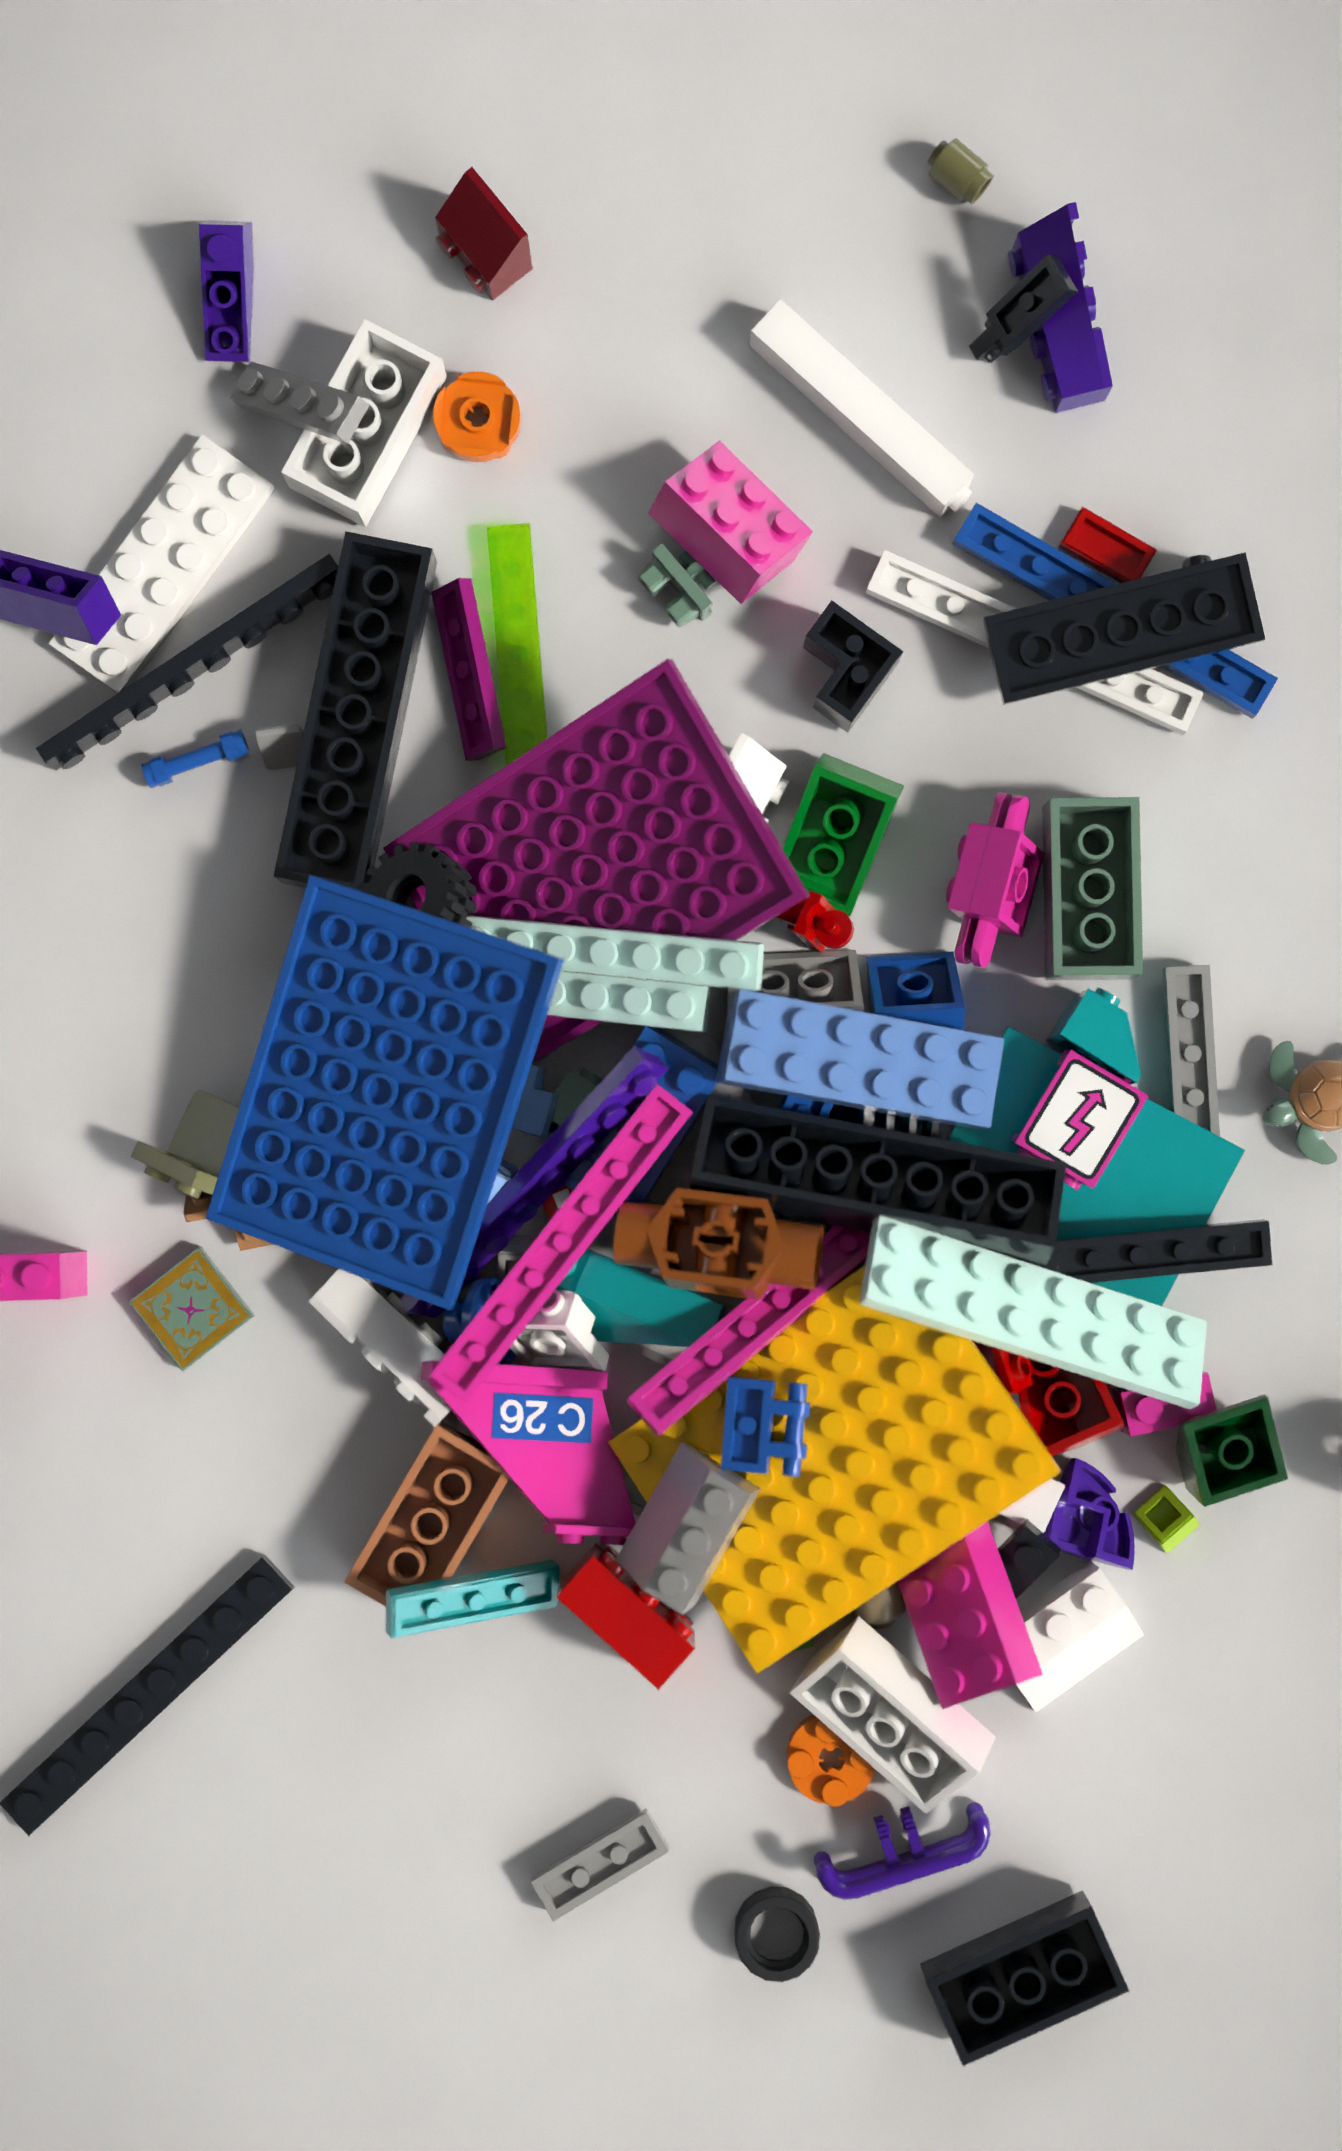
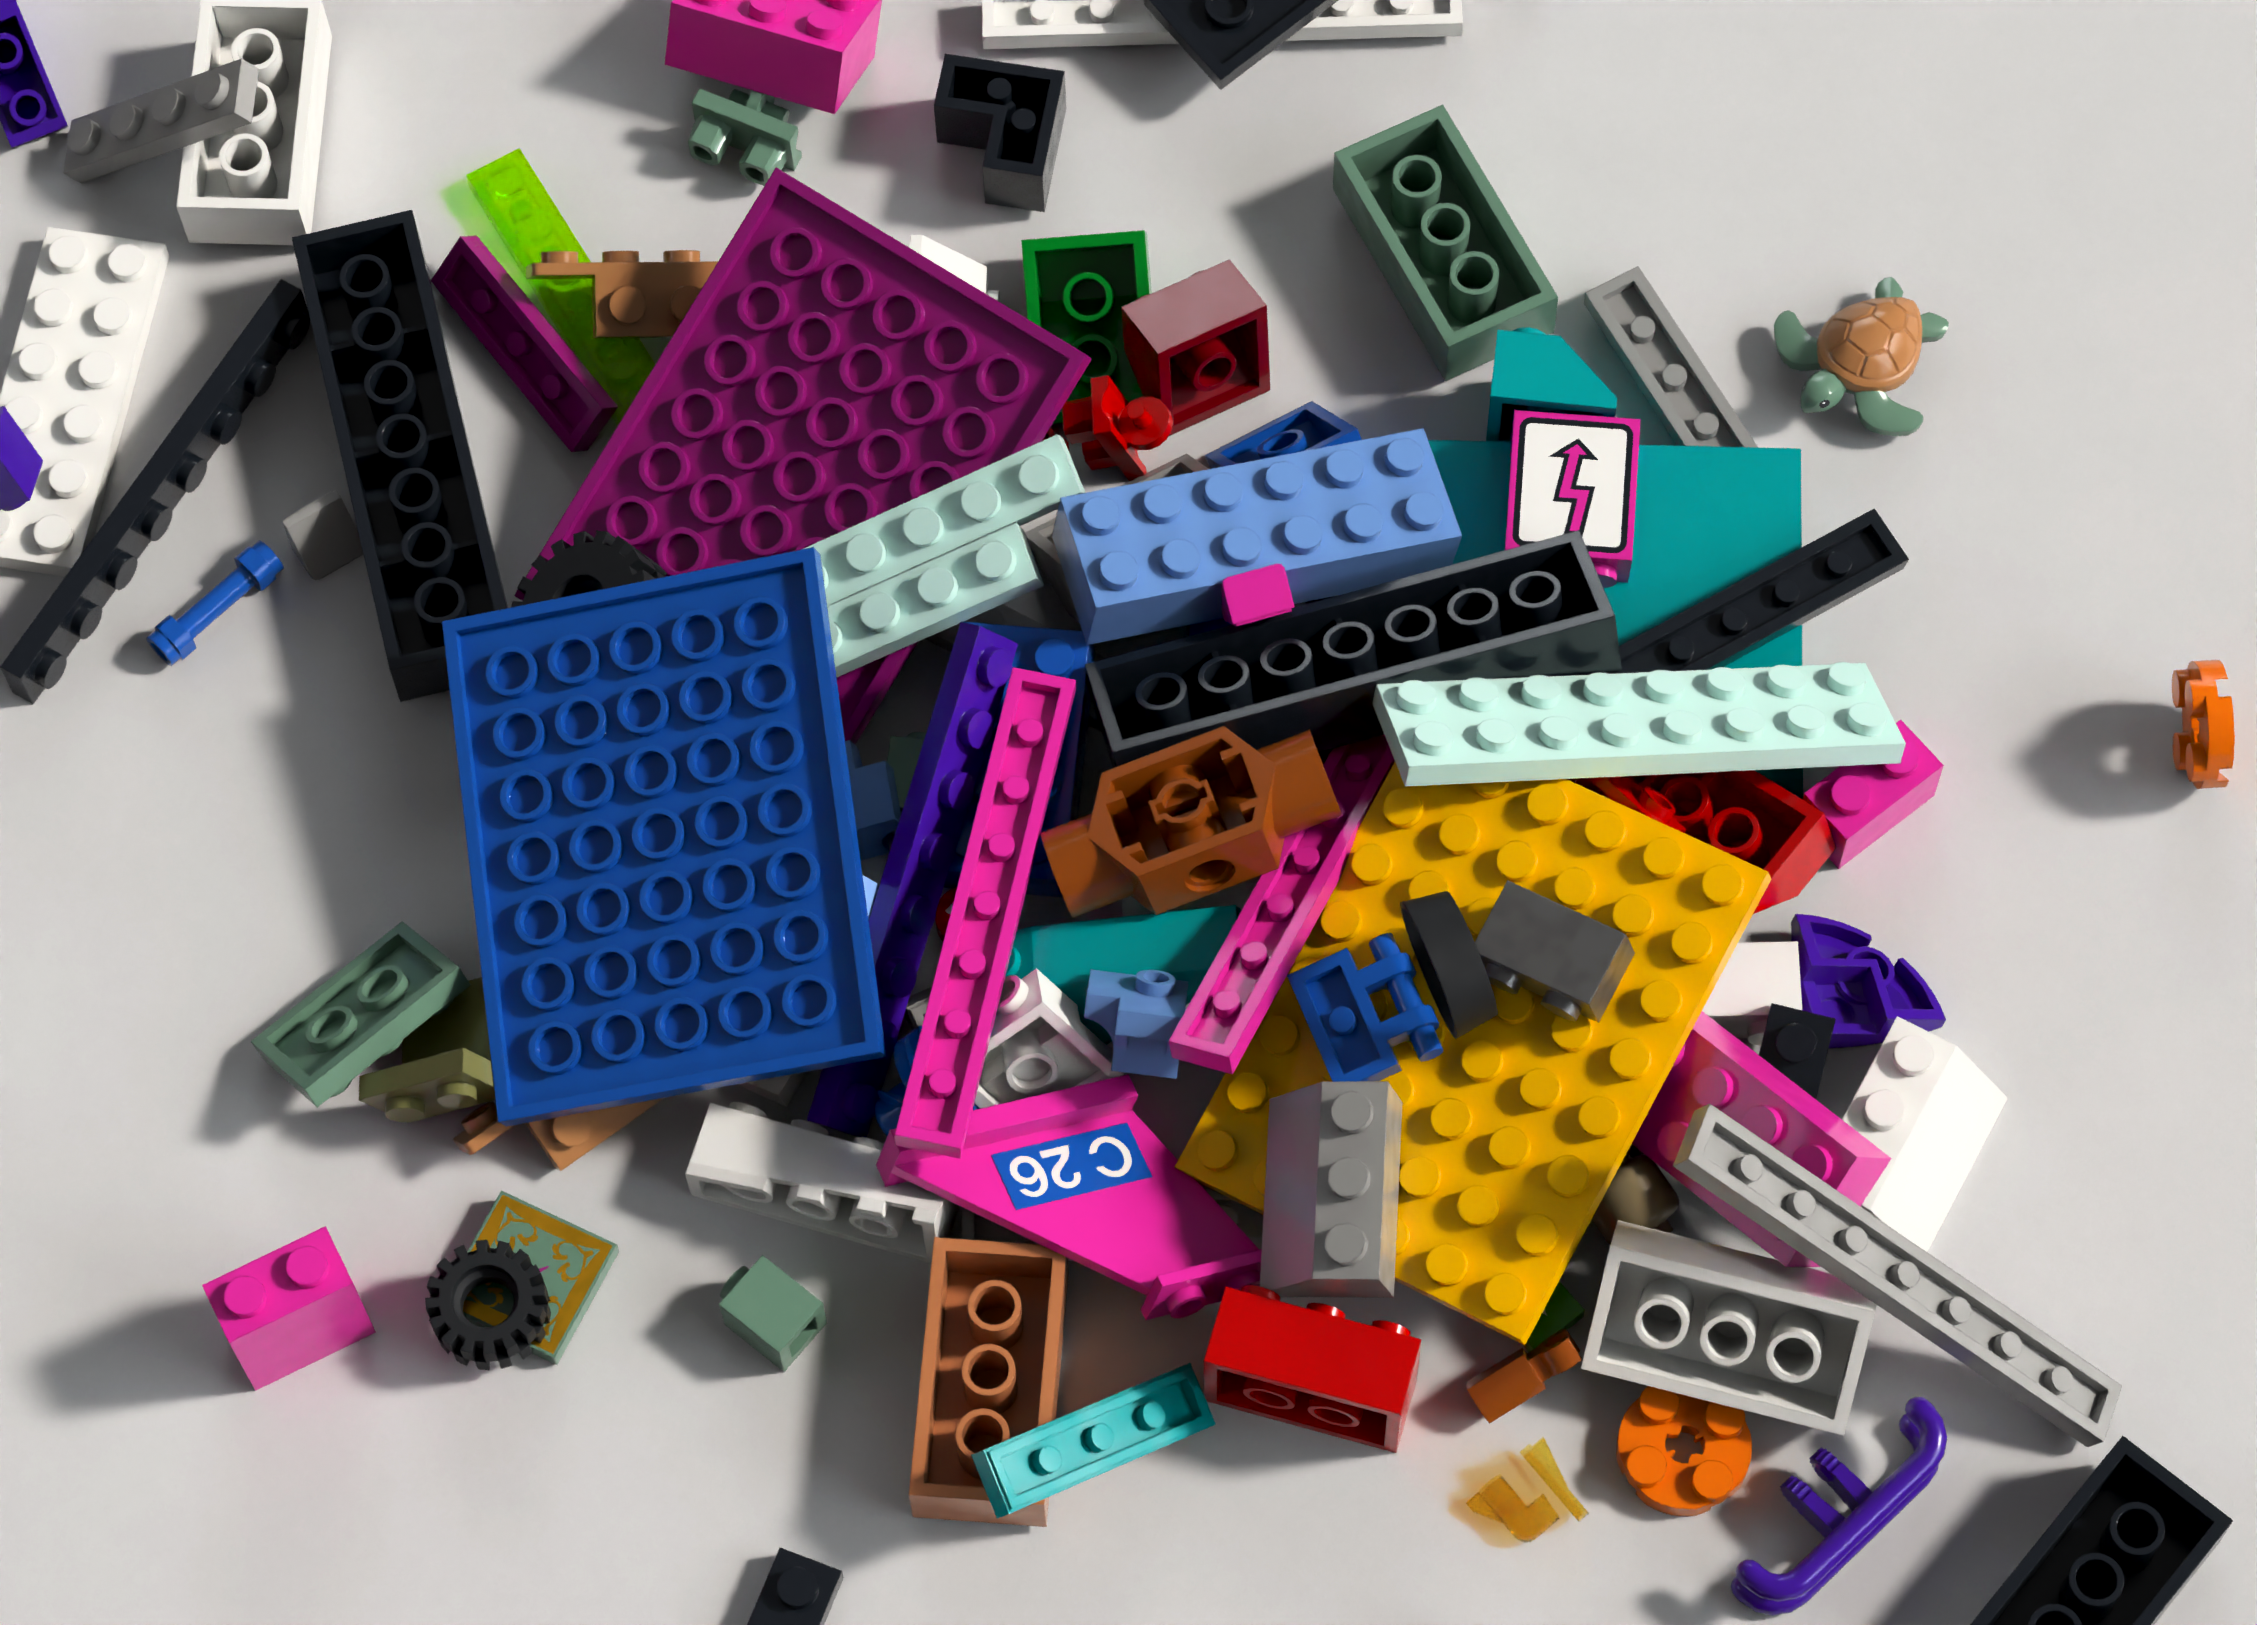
camera: 25 degrees left, 20 degrees down
(127, 1333) = (496, 1342): none -> black tyre
(159, 1094) = (360, 1014): none -> sand green plate
(323, 1407) = (771, 1312): none -> sand green brick
(498, 403) = (396, 91): orange plate -> none
(557, 676) = (632, 295): none -> medium nougat bracket
(627, 1349) = (1139, 1017): none -> medium blue brick
(712, 1757) = (1526, 1523): none -> clear yellow piece
(737, 1673) = (1522, 1375): none -> dark orange bar
(827, 1437) = (1449, 962): none -> black tyre
(835, 1113) = (1256, 595): none -> dark pink slope
(895, 888) = (1199, 344): none -> dark red slope
(895, 1459) = (1552, 953): none -> flat silver brick
(994, 880) = (1316, 278): dark pink brick -> none
(1003, 1751) = (1897, 1275): none -> light grey plate
(1166, 1518) = (1957, 943): lime slope -> none
(1230, 1451) = (1978, 798): dark green slope -> none

